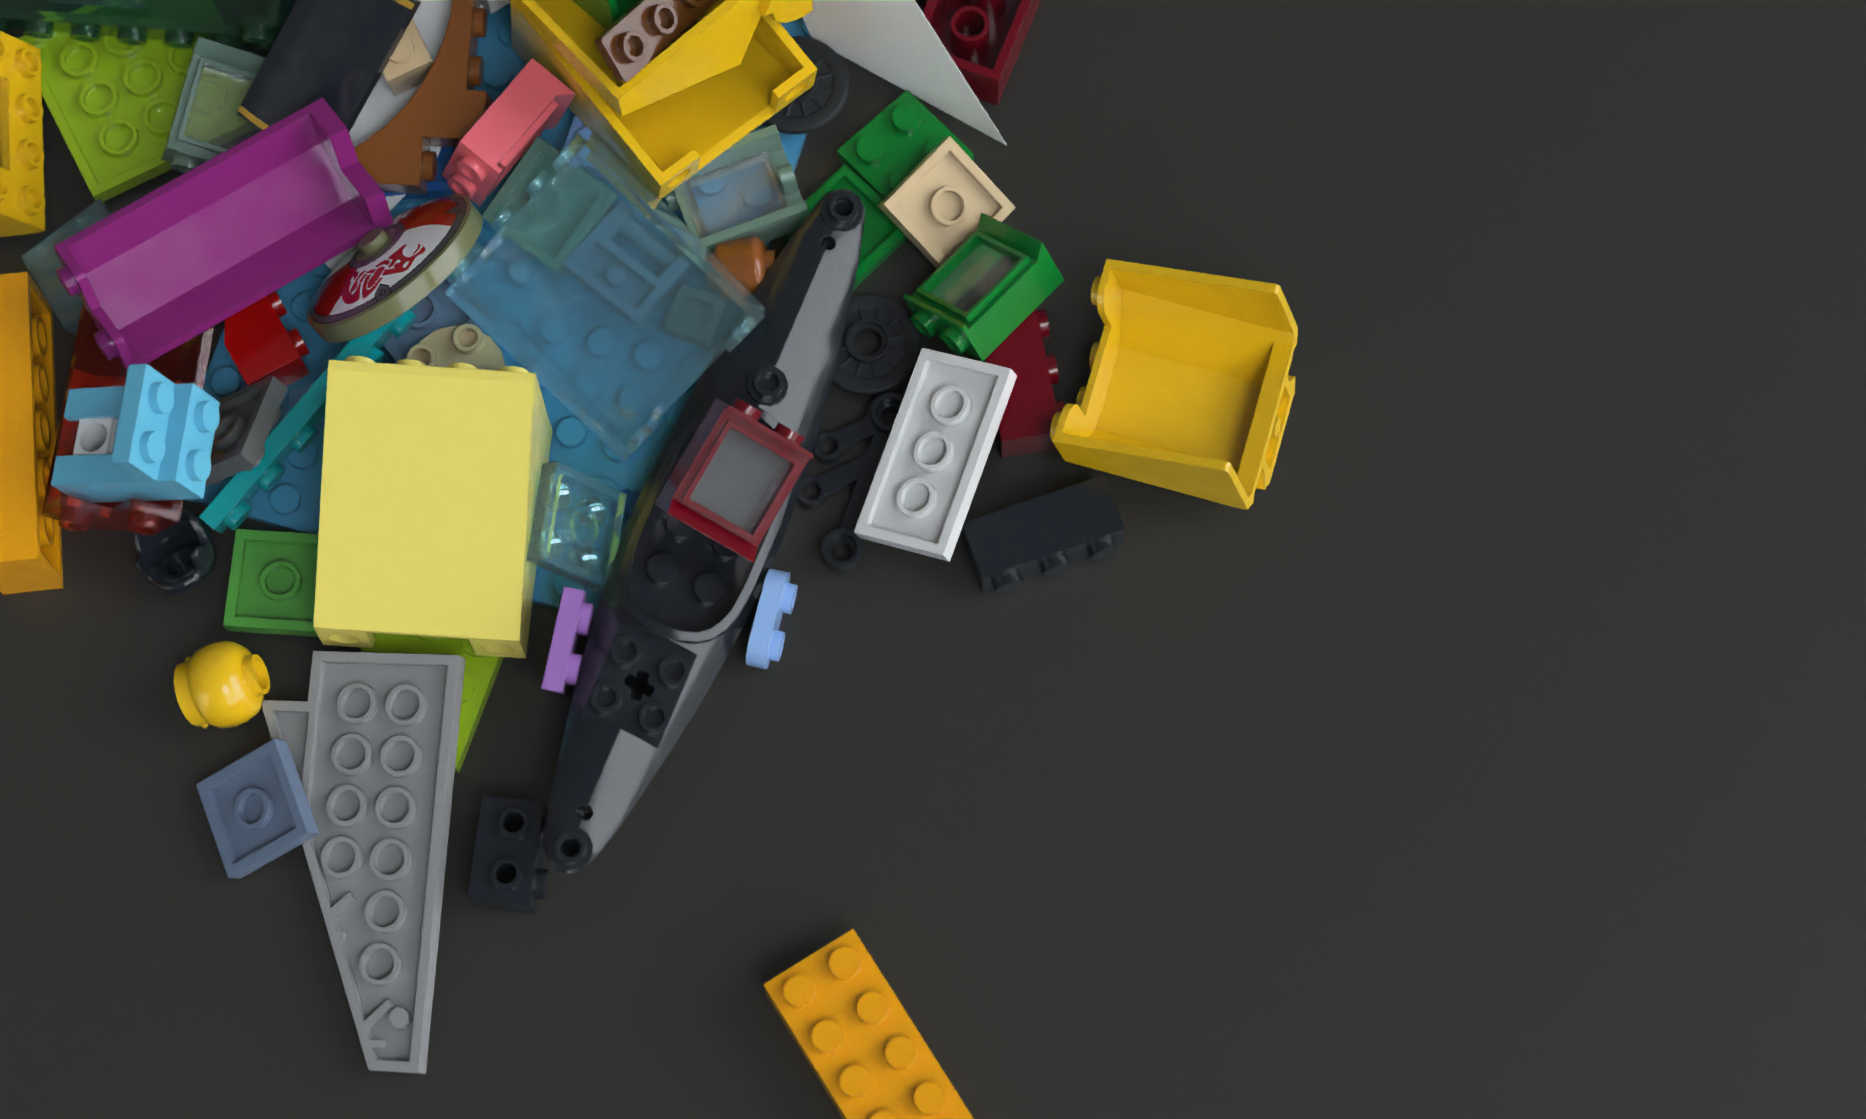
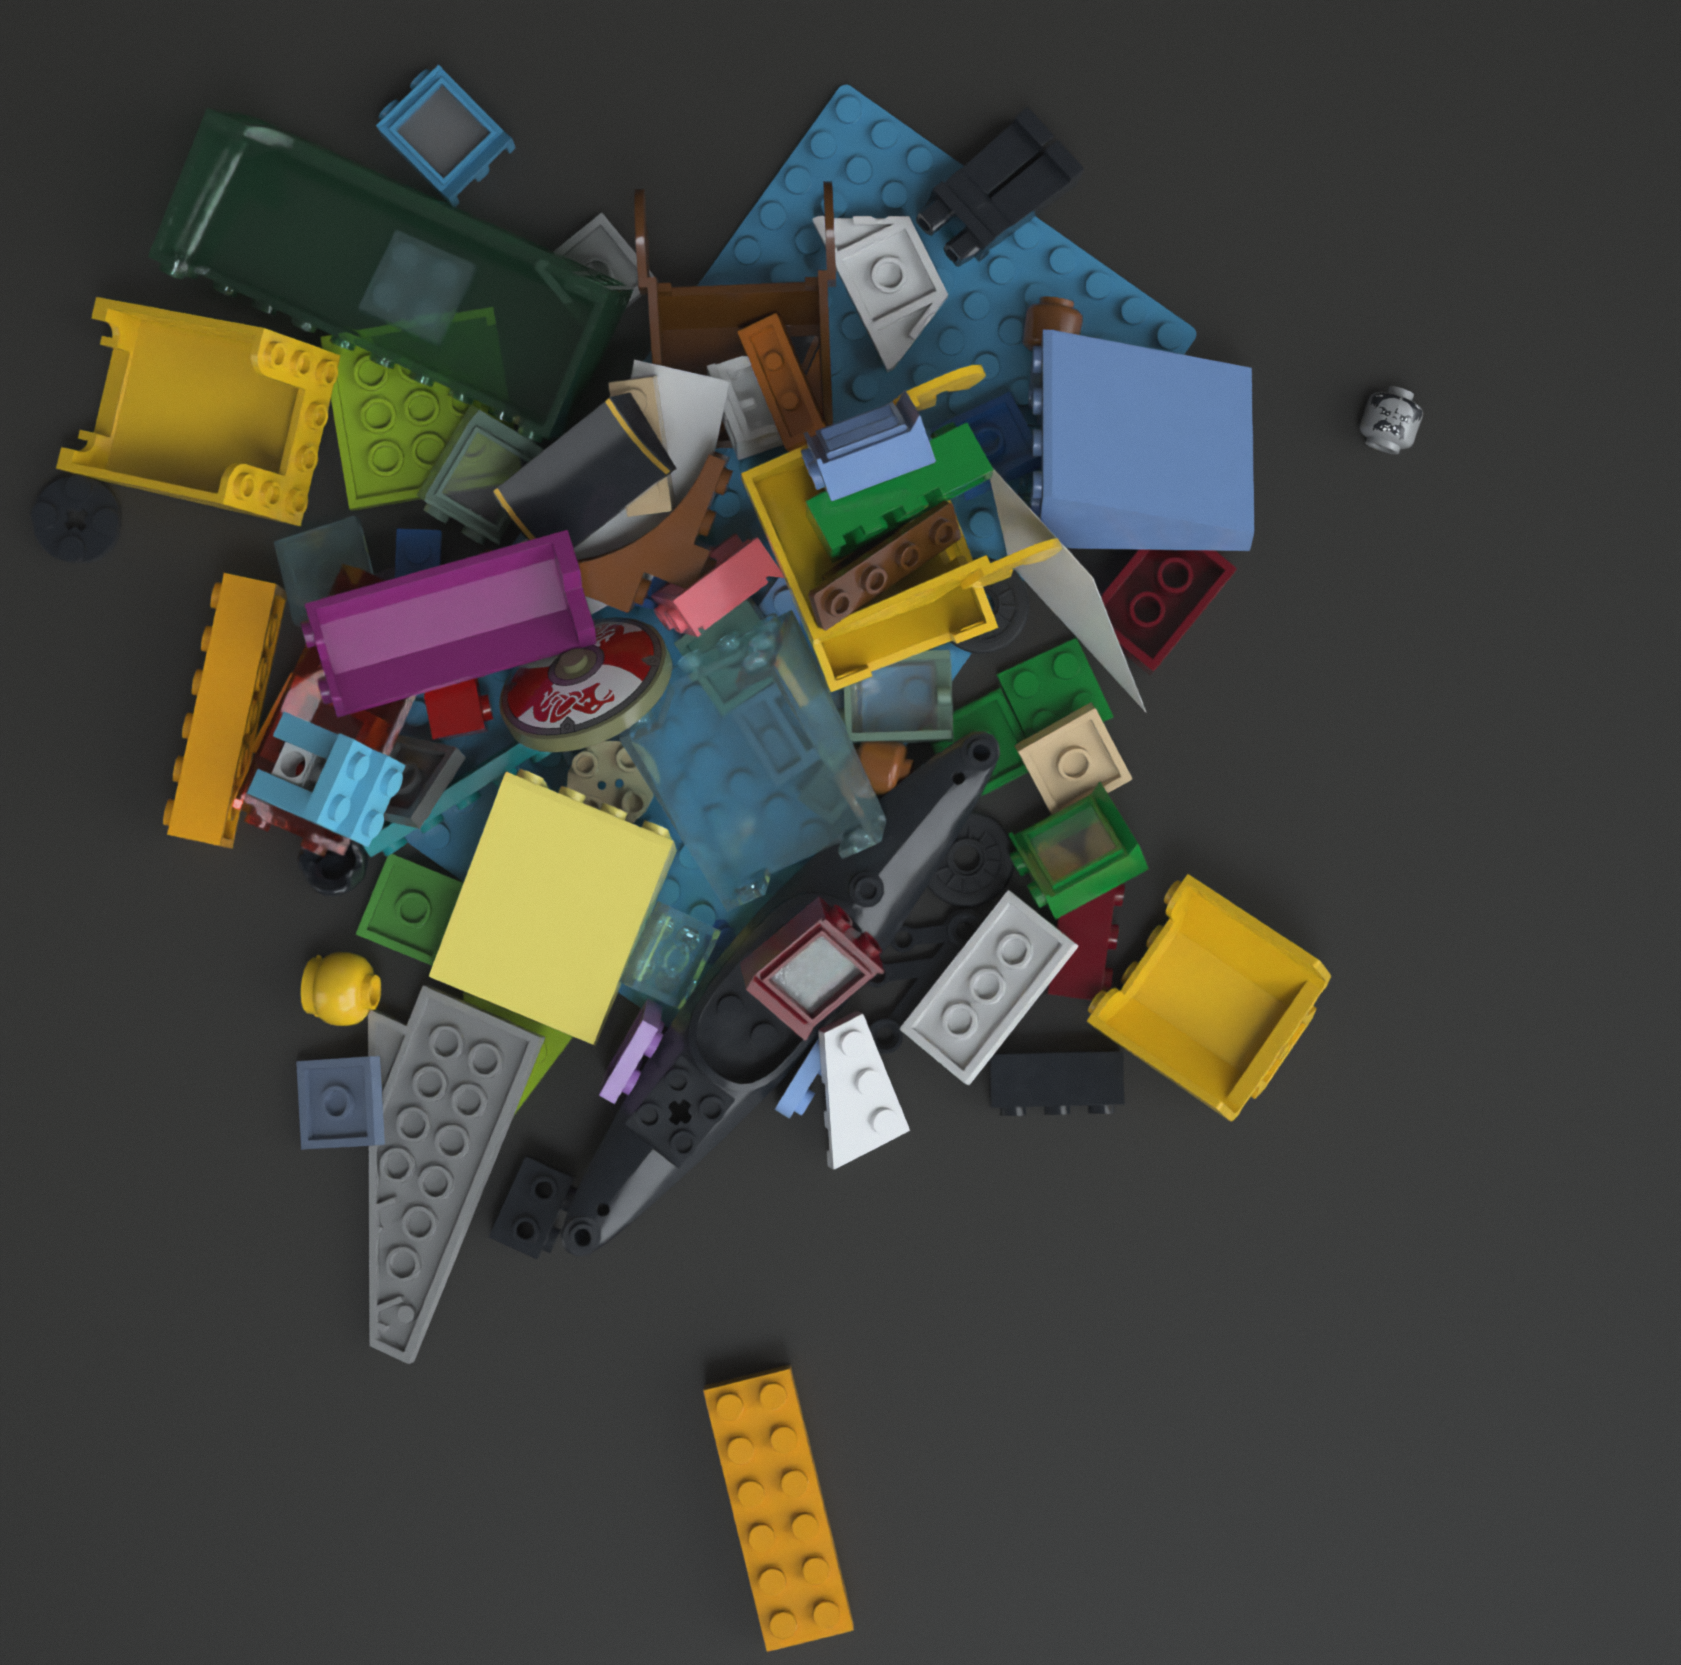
camera: 20 degrees right, 15 degrees up
(833, 614) = (858, 1092): none -> white wing

